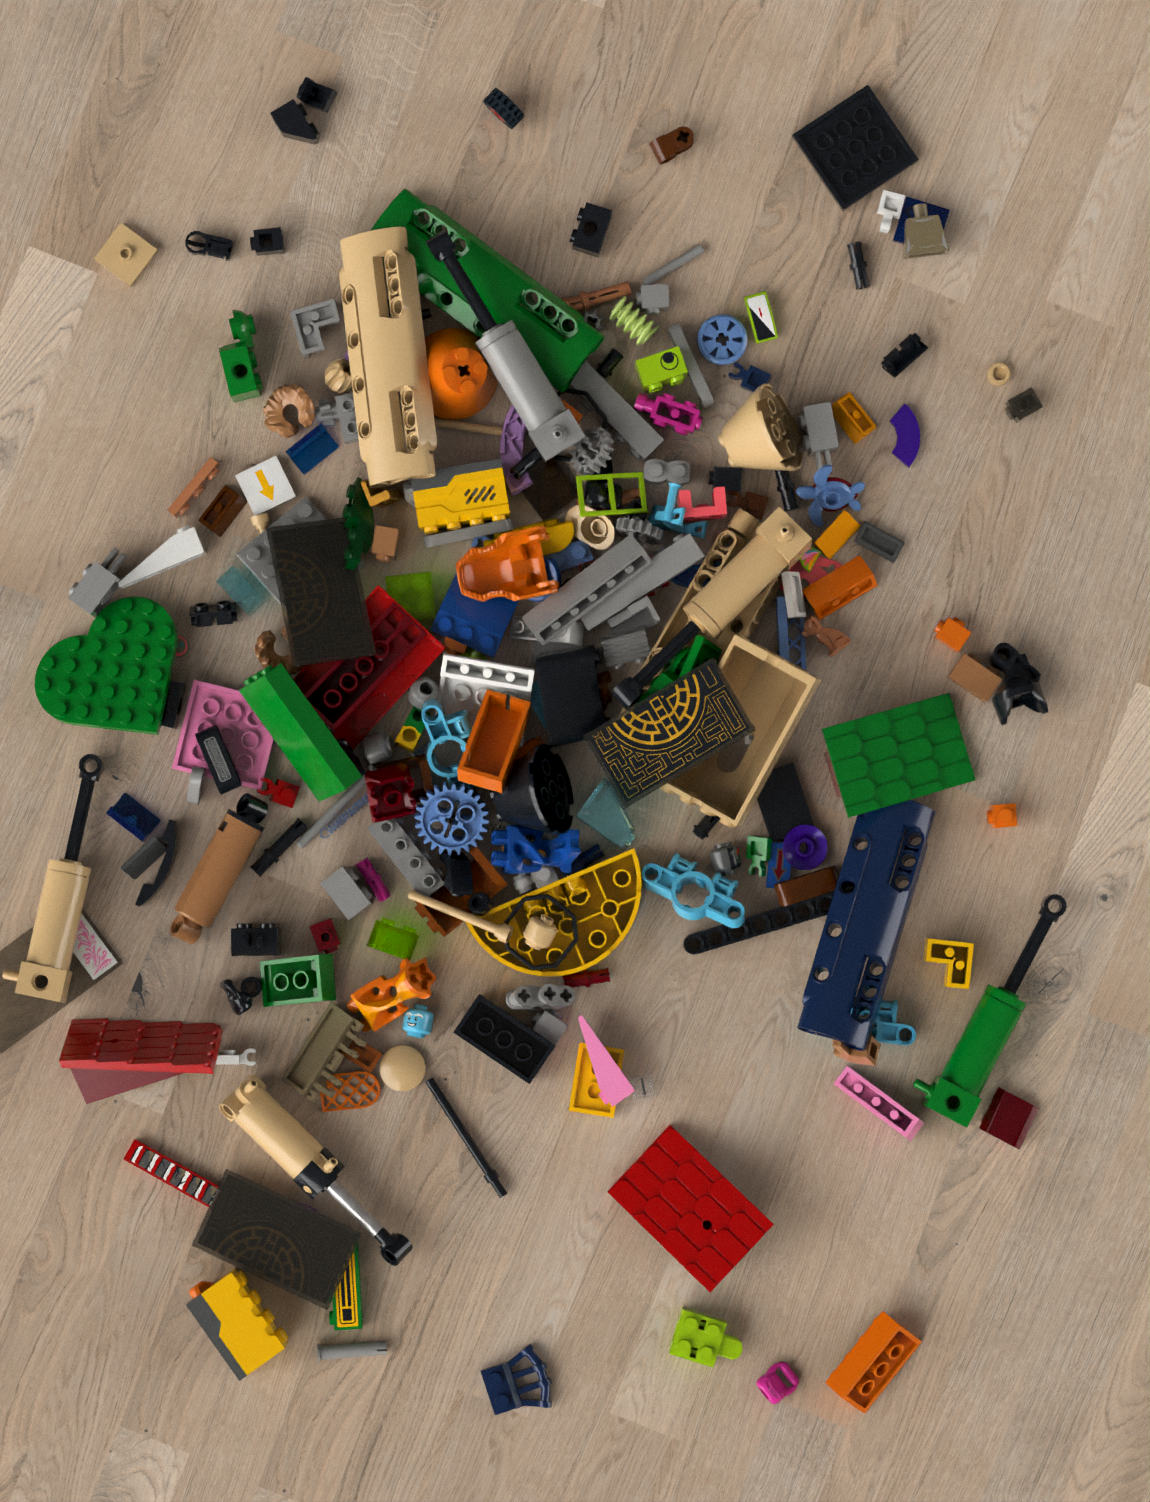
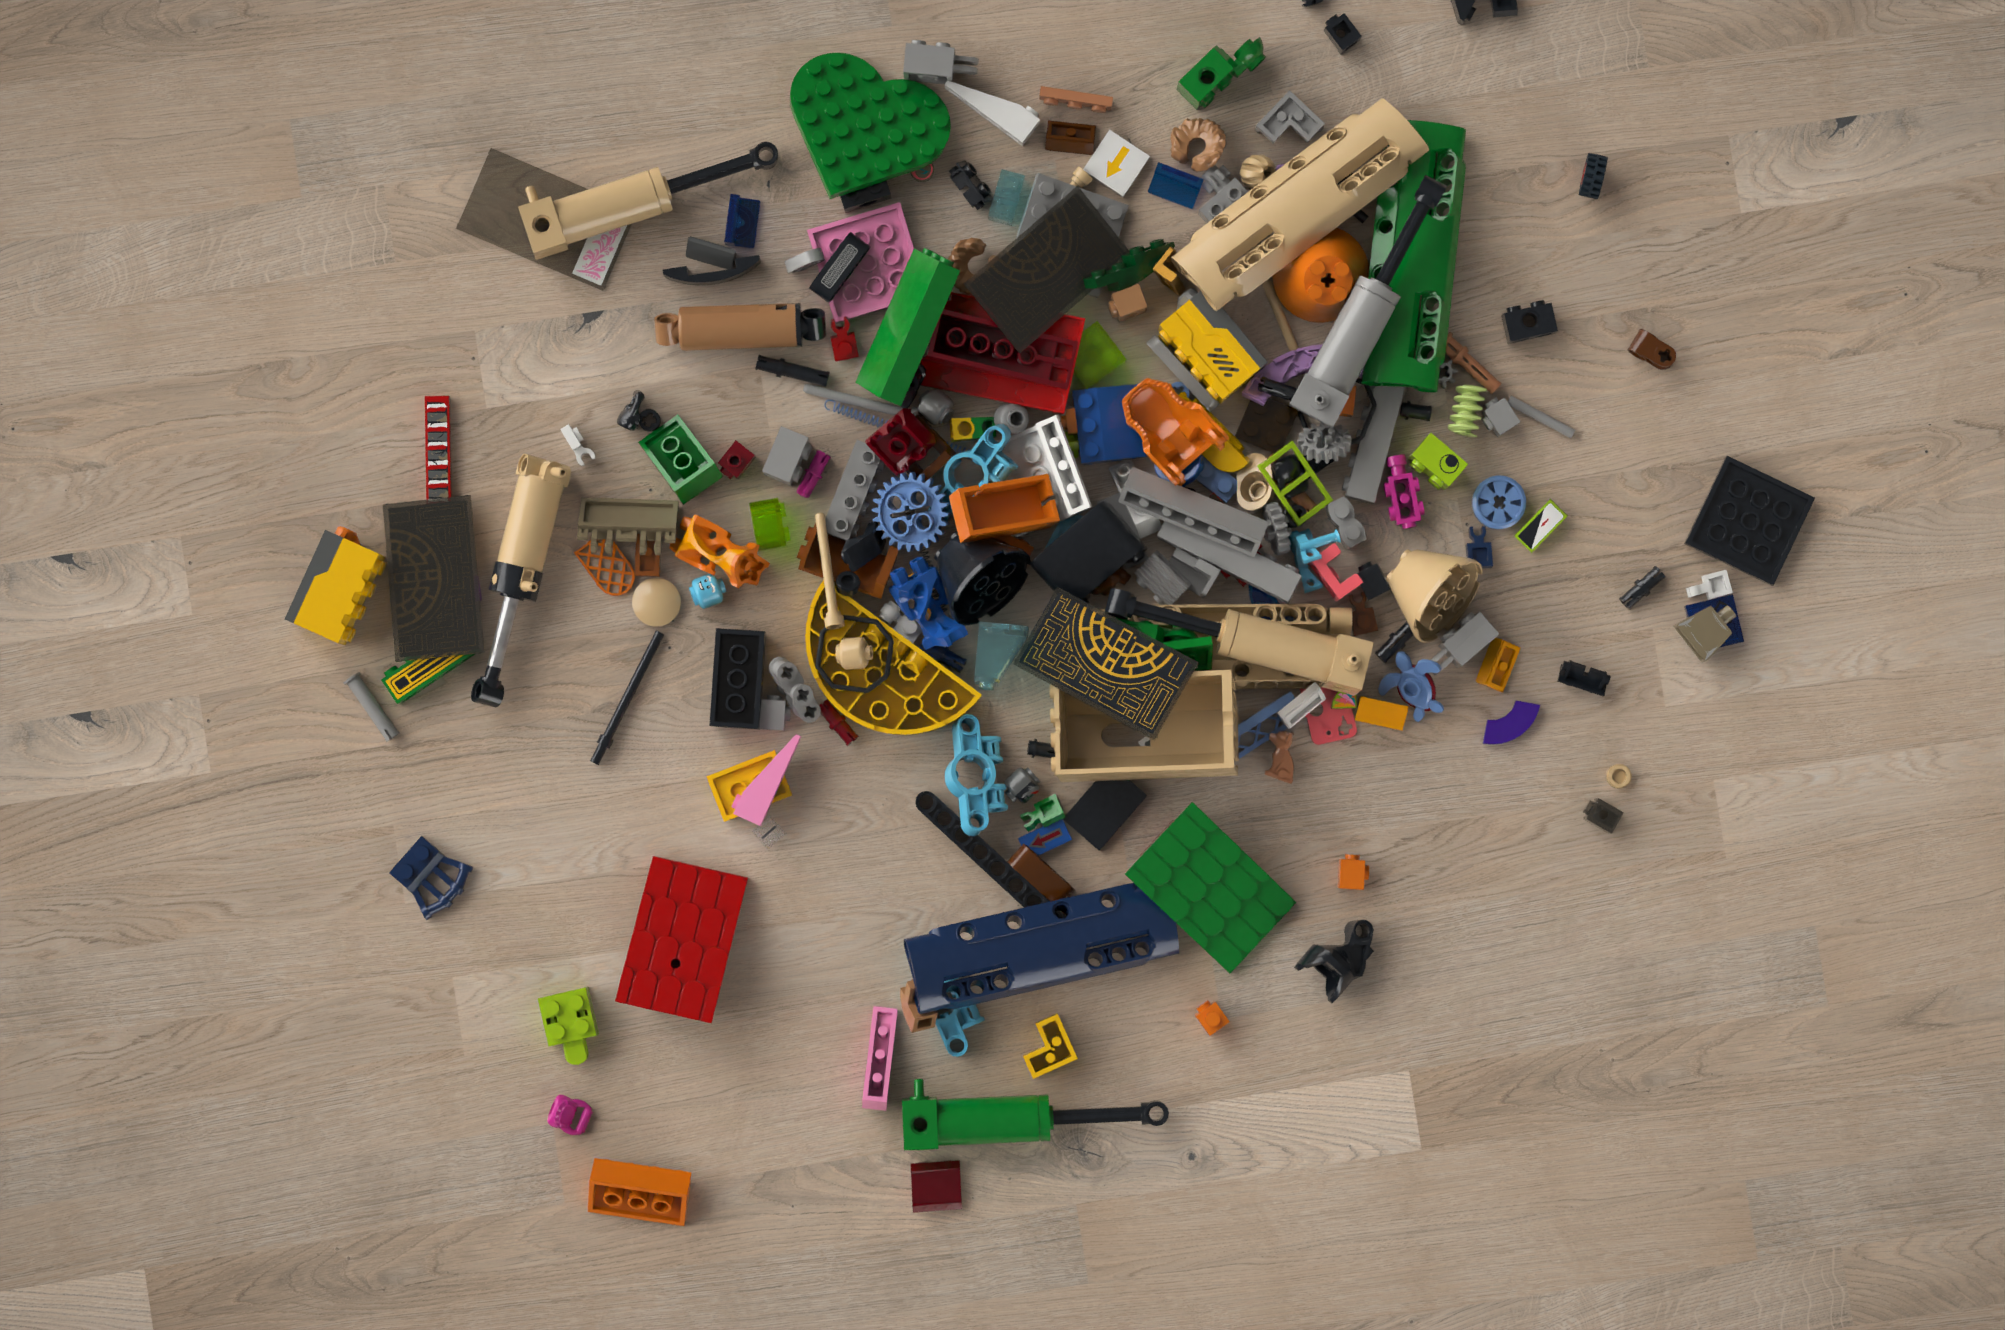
camera: 65 degrees right, 0 degrees up
(133, 1053) = (525, 347): red piece -> none
(255, 941) = (693, 398): black hinge -> none
(692, 367) = (1457, 487): light grey beam -> none
(815, 847) = (1077, 864): dark purple dish -> none
(839, 587) = (1334, 744): orange panel -> none
(879, 542) = (1397, 756): dark grey tile -> none
(974, 677) = (1324, 917): medium nougat brick -> none

